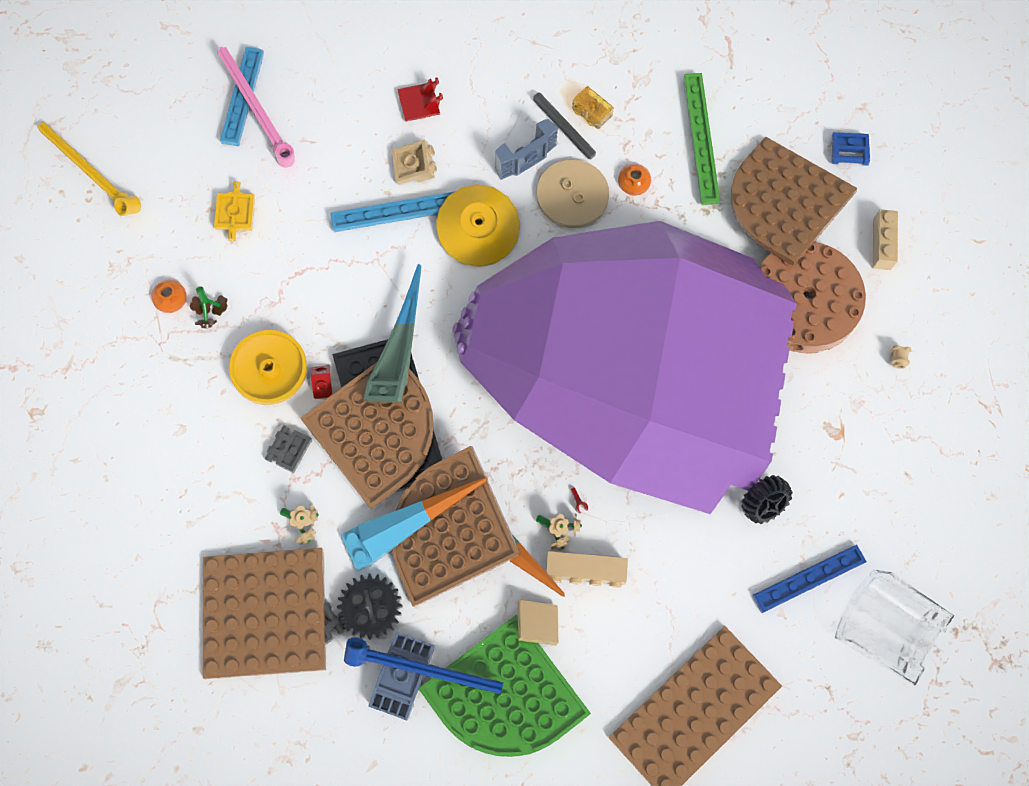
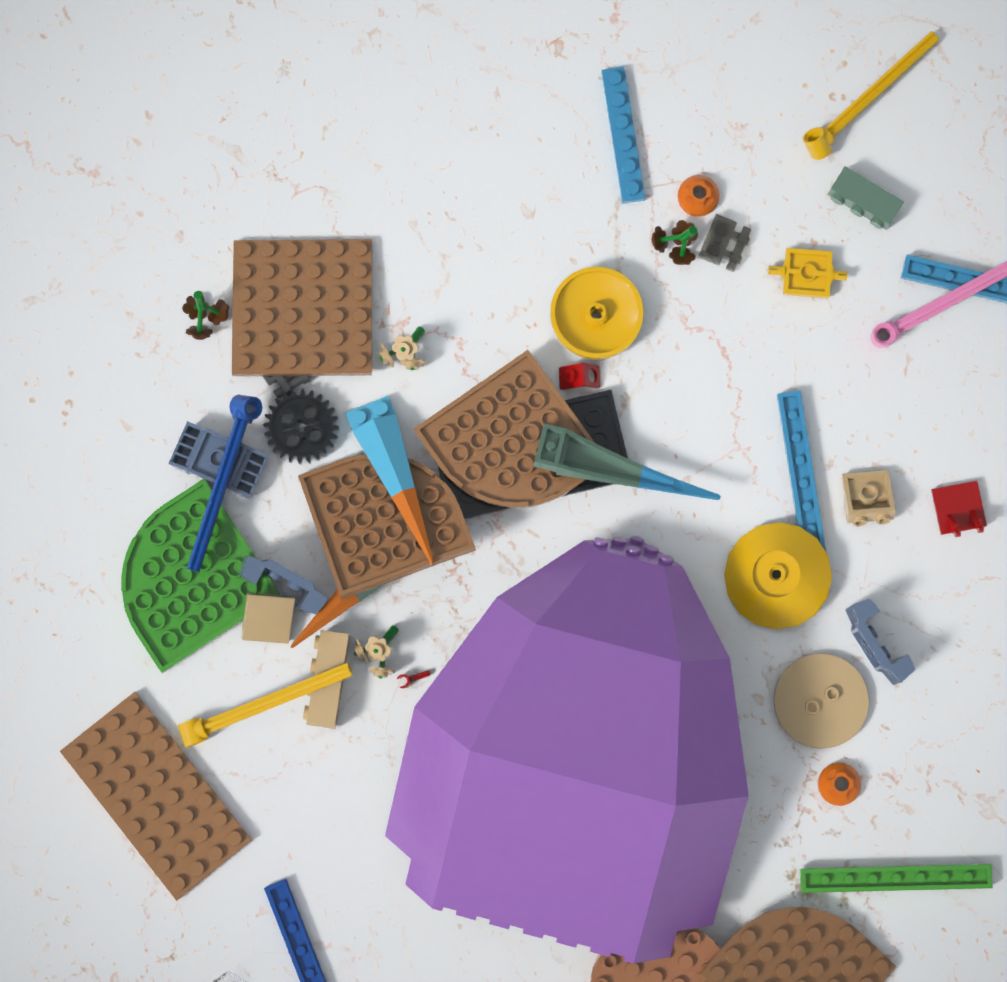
camera: 95 degrees right, 10 degrees up
(115, 356) = (623, 135): none -> dark azure plate
(173, 171) = (865, 198): none -> sand green brick
(207, 278) = (718, 239): none -> clear smoke plate
(263, 706) = (197, 307): none -> reddish brown plant
(293, 451) = (492, 342): dark grey plate -> none
(518, 588) = (311, 599): none -> sand blue plate
(564, 125) = (919, 696): dark grey axle -> none
(592, 107) = (955, 729): clear yellow brick -> none
(637, 678) = (198, 730): none -> yellow piece
(766, 499) = (395, 904): black gear -> none

